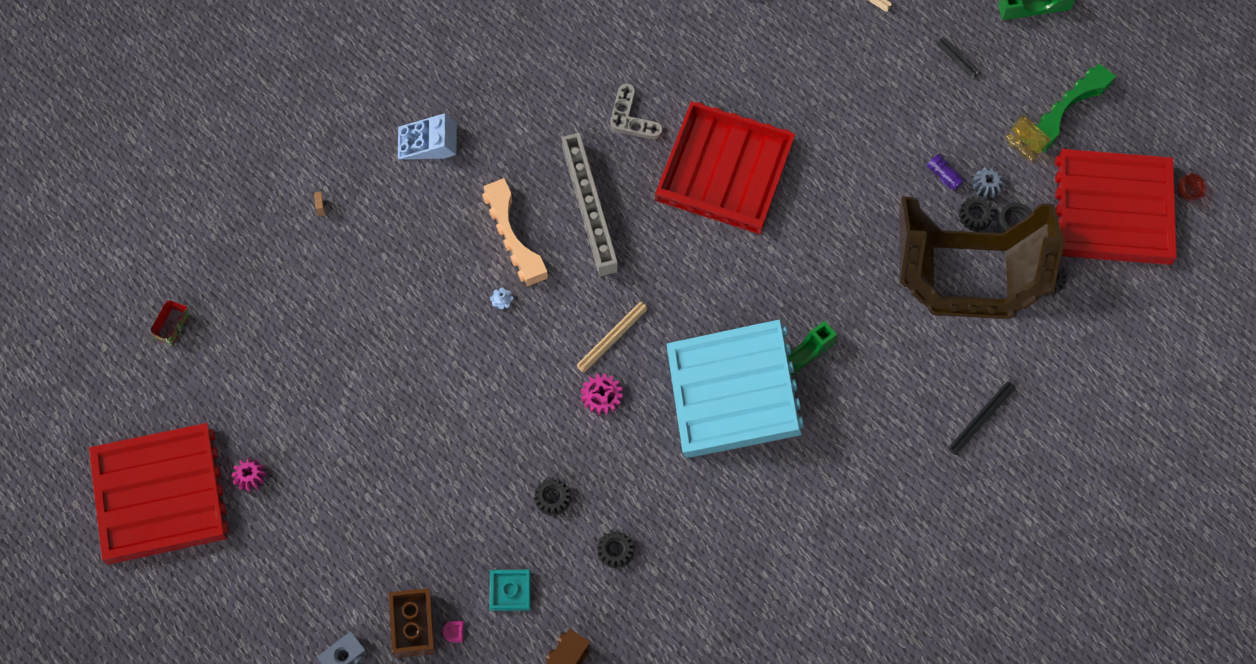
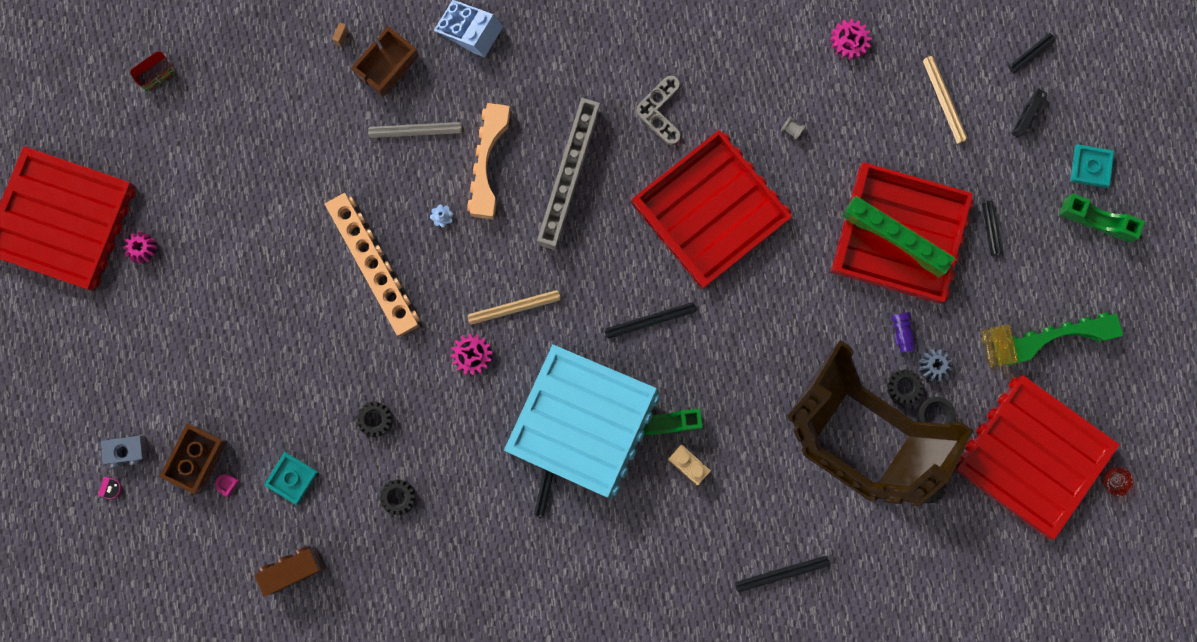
camera: 30 degrees right, 15 degrees up
(374, 202) = (386, 65): none -> reddish brown piece
(433, 244) = (414, 130): none -> light grey axle
(524, 406) = (337, 208): none -> light nougat brick
(733, 282) = (650, 320): none -> black axle
(739, 471) = (543, 493): none -> black axle
(748, 70) = (792, 128): none -> light grey bush
(845, 374) = (689, 465): none -> tan brick
(891, 99) = (920, 205): none -> red panel
(924, 99) = (920, 249): none -> green arch

